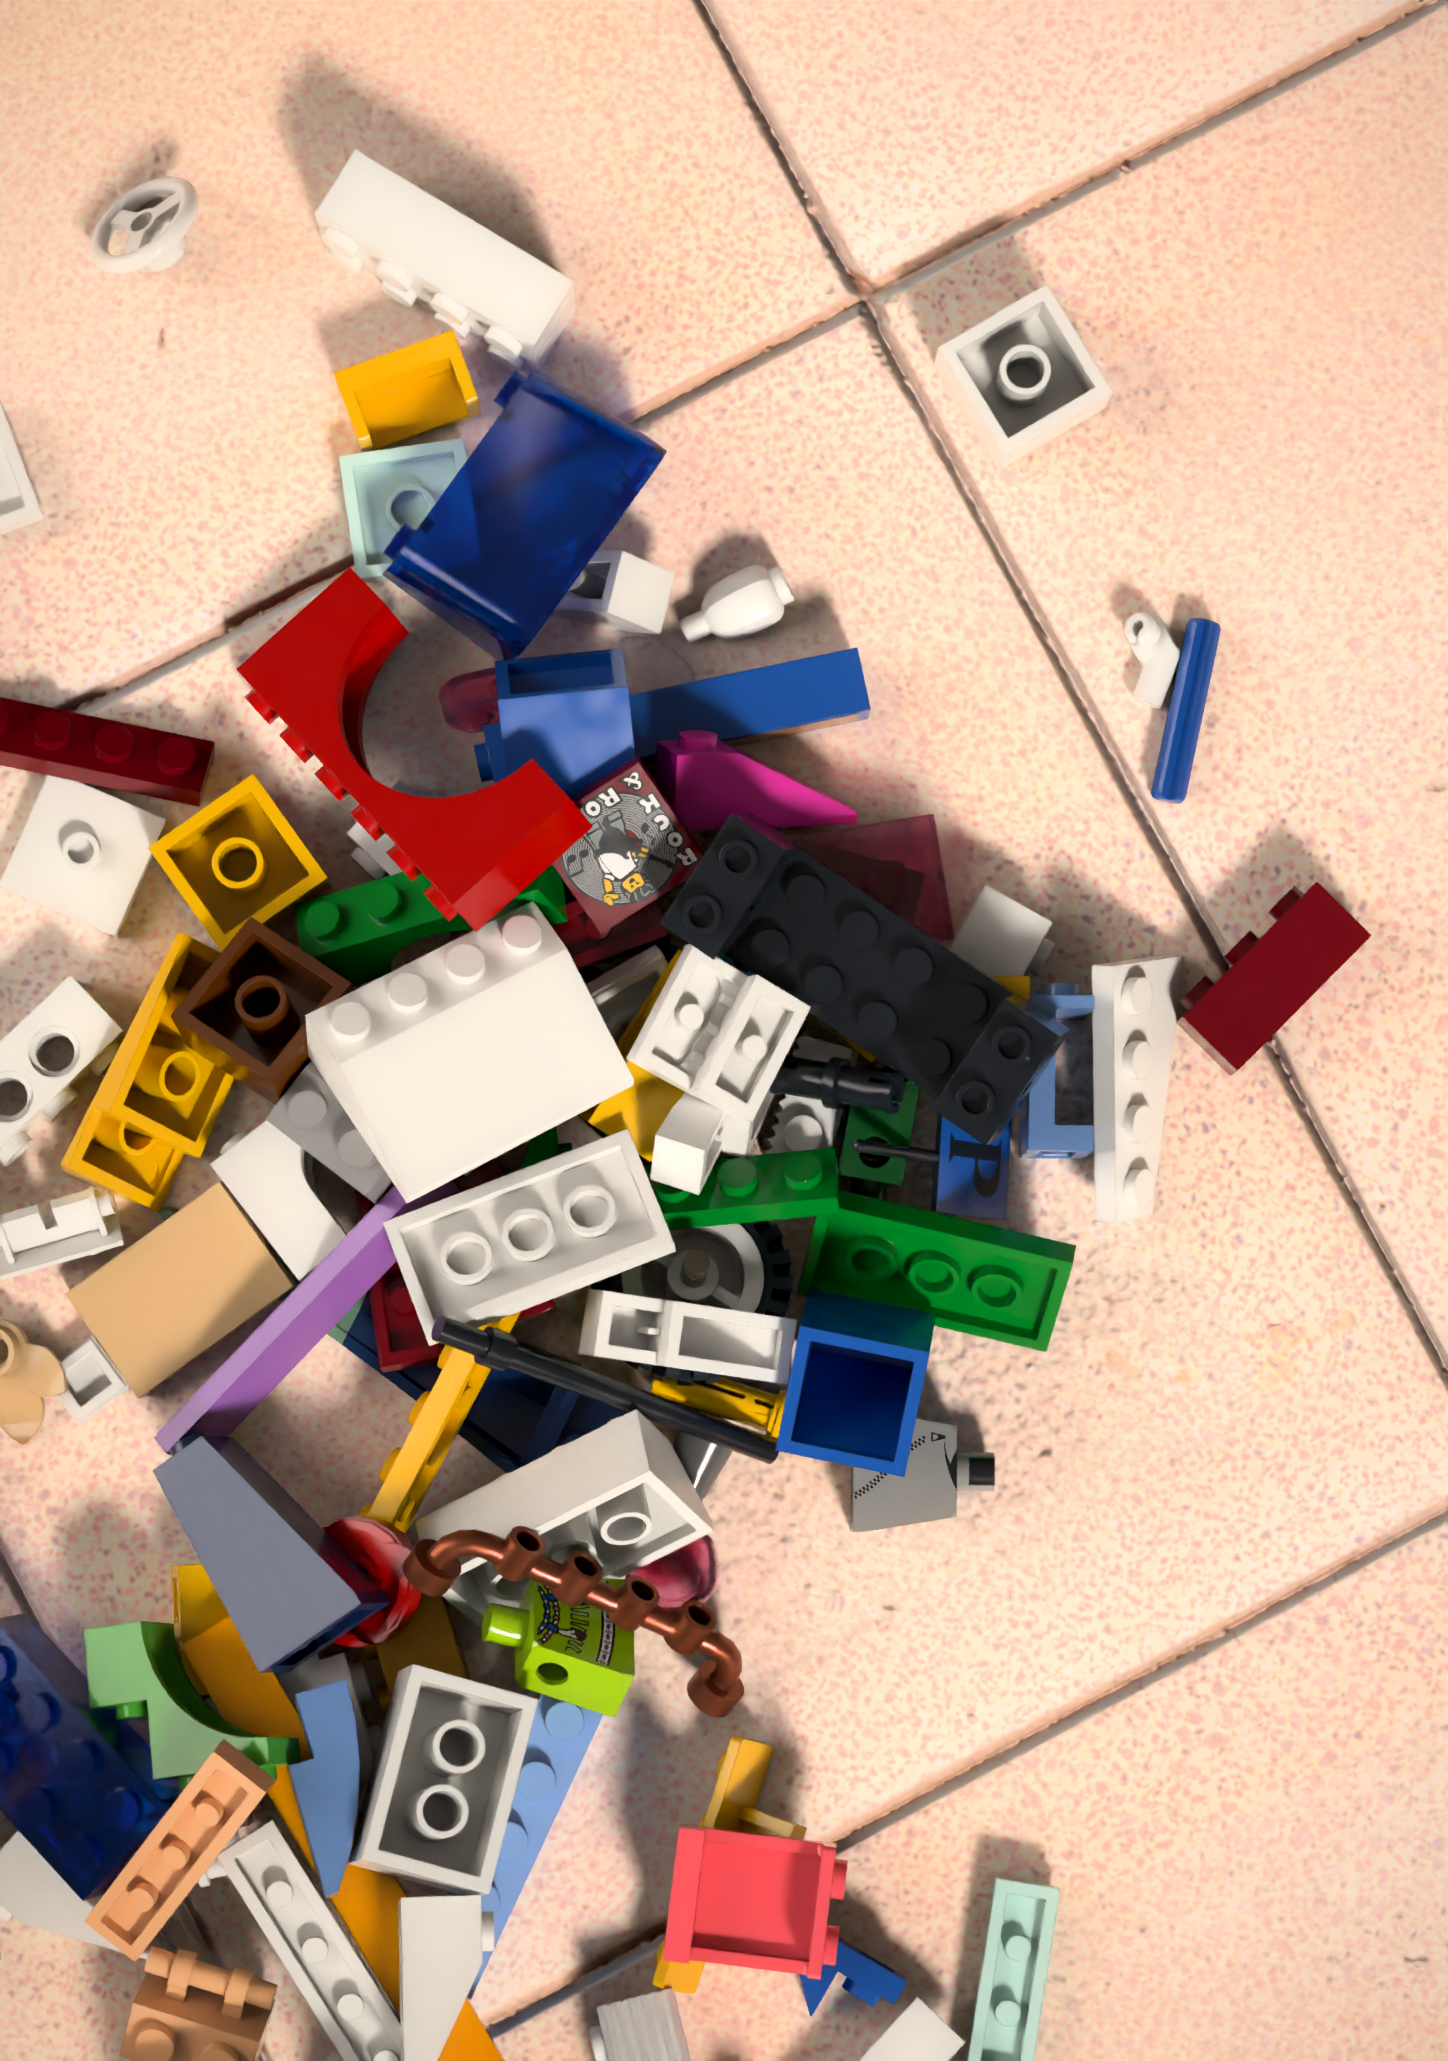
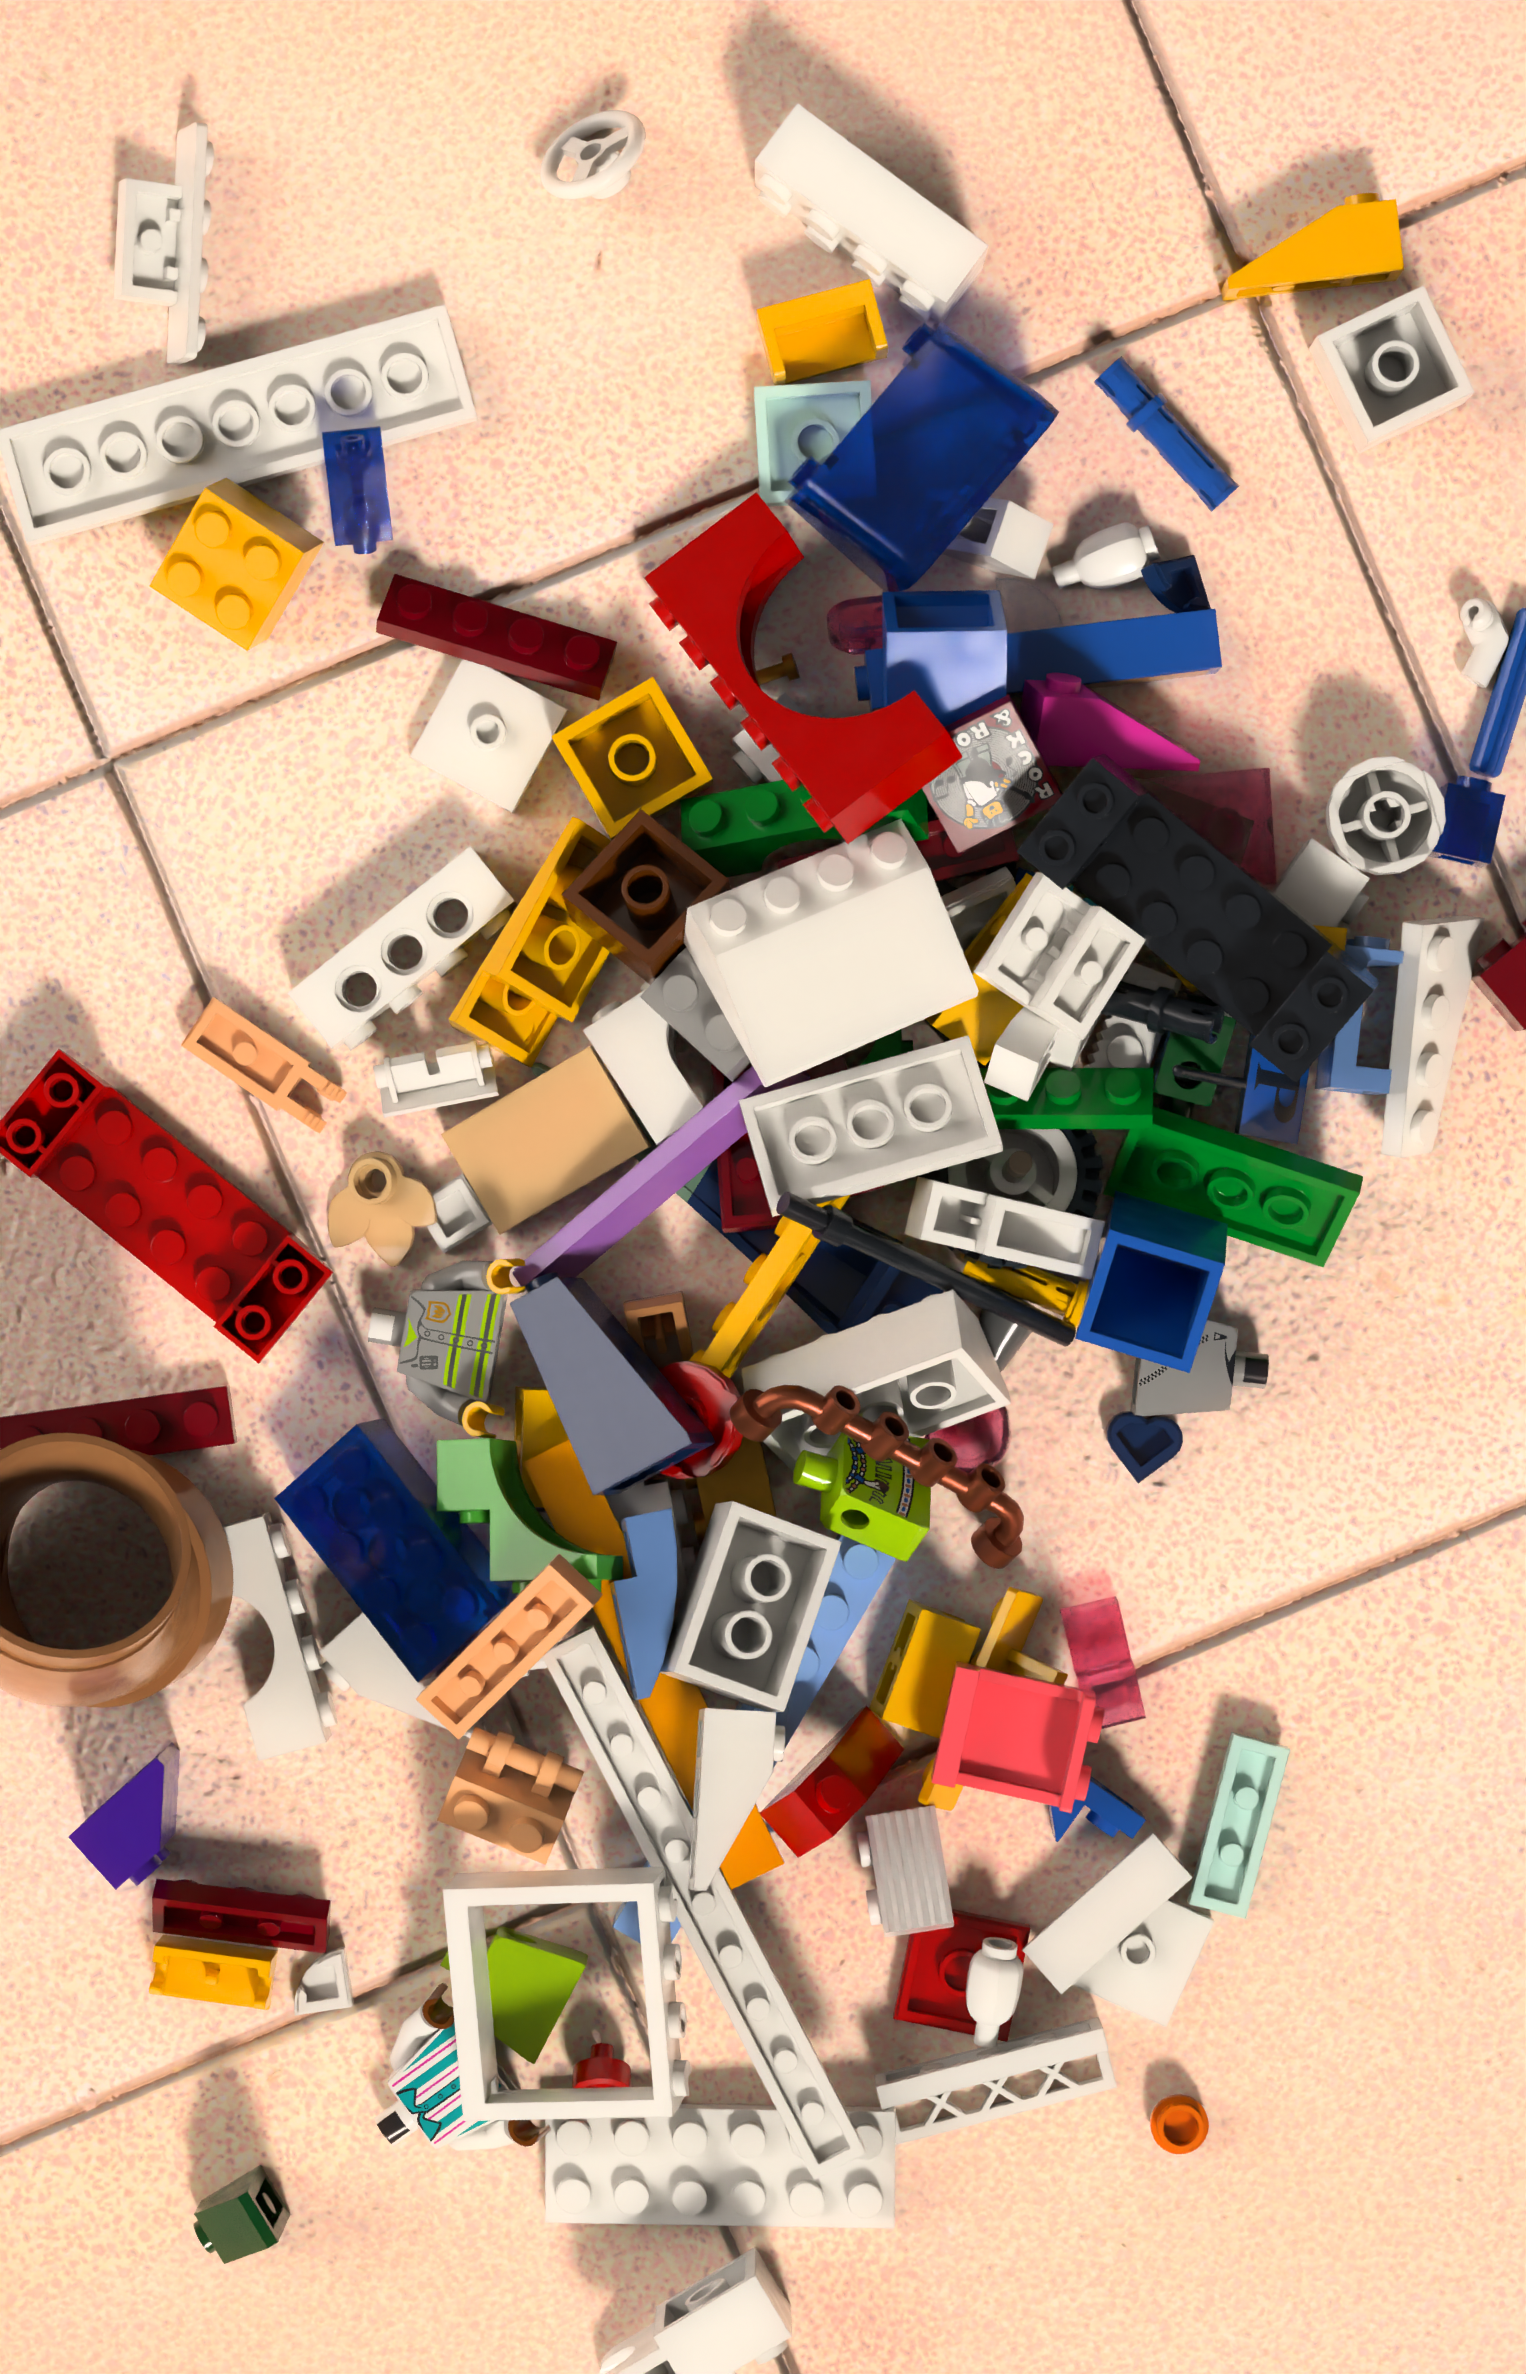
camera: 15 degrees right, 5 degrees up
(94, 1517) = (452, 1339): none -> light grey torso
(323, 1483) = (660, 1327): none -> medium nougat slope
(401, 754) = (785, 668): none -> pearl gold piece
(555, 1972) = (833, 1783): none -> red slope
(643, 1835) = (921, 1668): none -> yellow hinge
(780, 459) = (1169, 437): none -> blue pin
(815, 625) = (1177, 584): none -> dark blue tile
(846, 1809) = (1103, 1659): none -> clear pink slope
(867, 1564) = (1143, 1443): none -> dark blue tile
(952, 257) = (1340, 249): none -> yellow slope
(1062, 853) = (1385, 815): none -> white cylinder
(1152, 854) = (1470, 823): none -> clear blue brick

